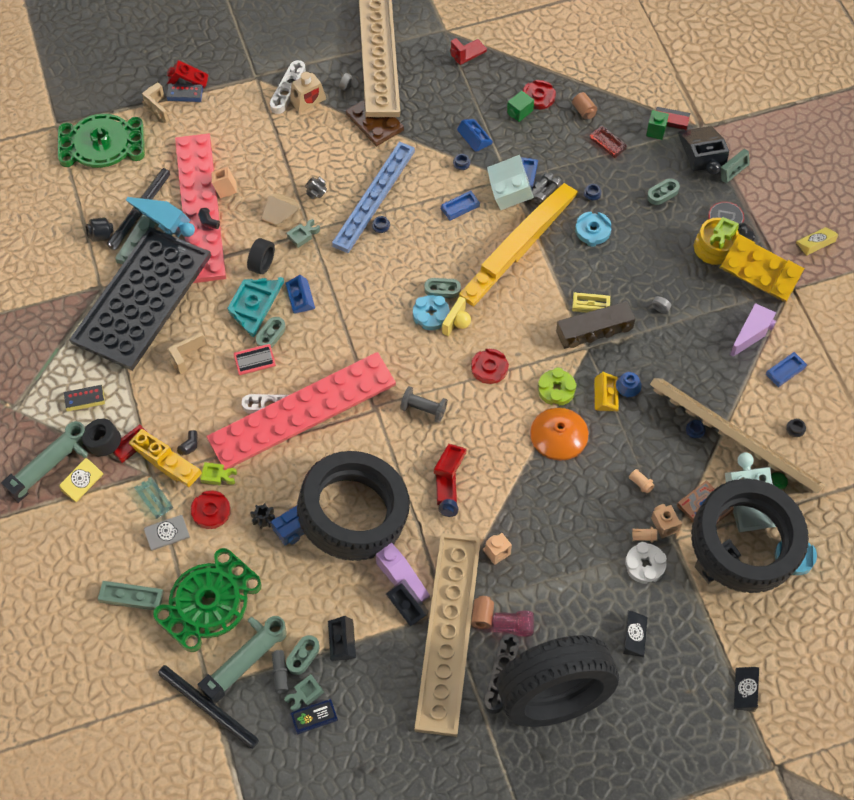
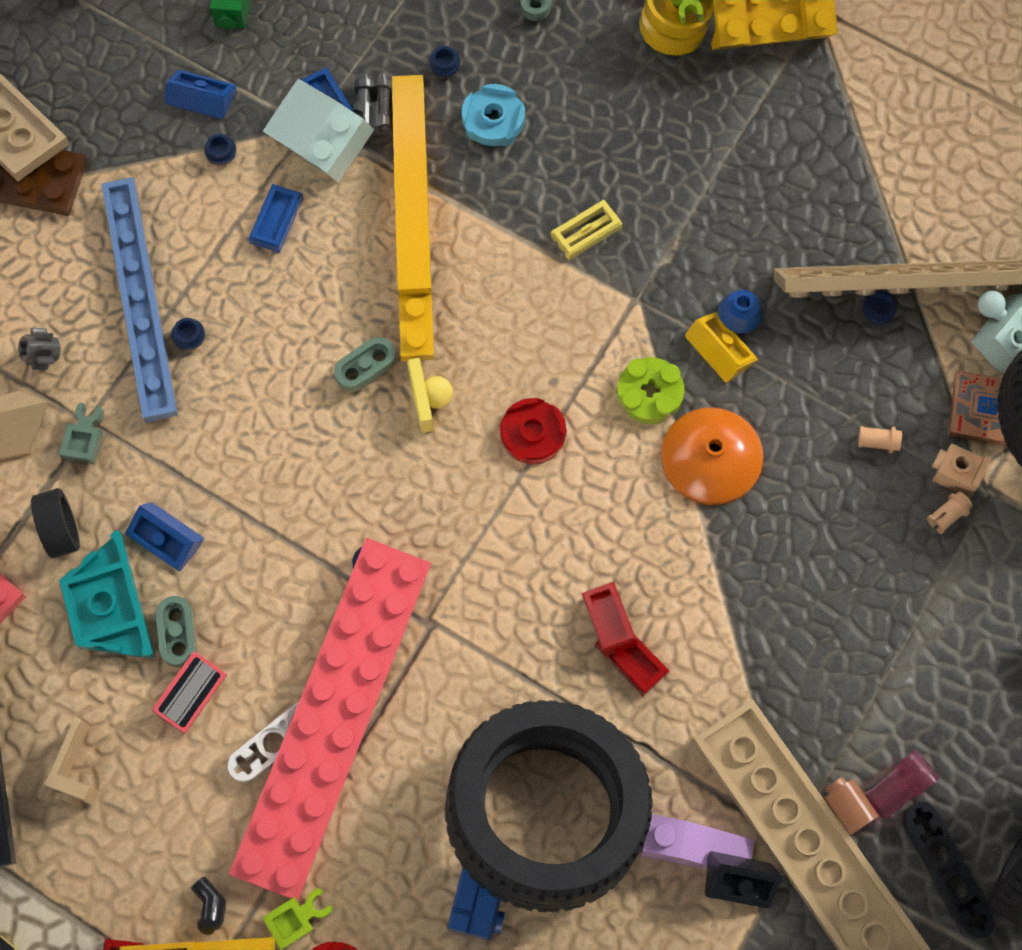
camera: 40 degrees left, 10 degrees up
(259, 519) = (417, 916): black gear -> none
(423, 404) = (499, 564): dark grey hose -> none
(427, 303) = (380, 395): medium azure plate -> none
(448, 508) = (669, 690): dark blue plate -> none
(497, 548) = (786, 695): light nougat brick -> none
(595, 325) = (626, 259): brick -> none
(645, 552) = (973, 566): white plate -> none
(661, 304) = (682, 161): light grey tile -> none
(755, 328) = (827, 97): lavender slope -> none
(786, 369) = (914, 132): blue tile -> none
(796, 428) = (998, 206): black plate -> none

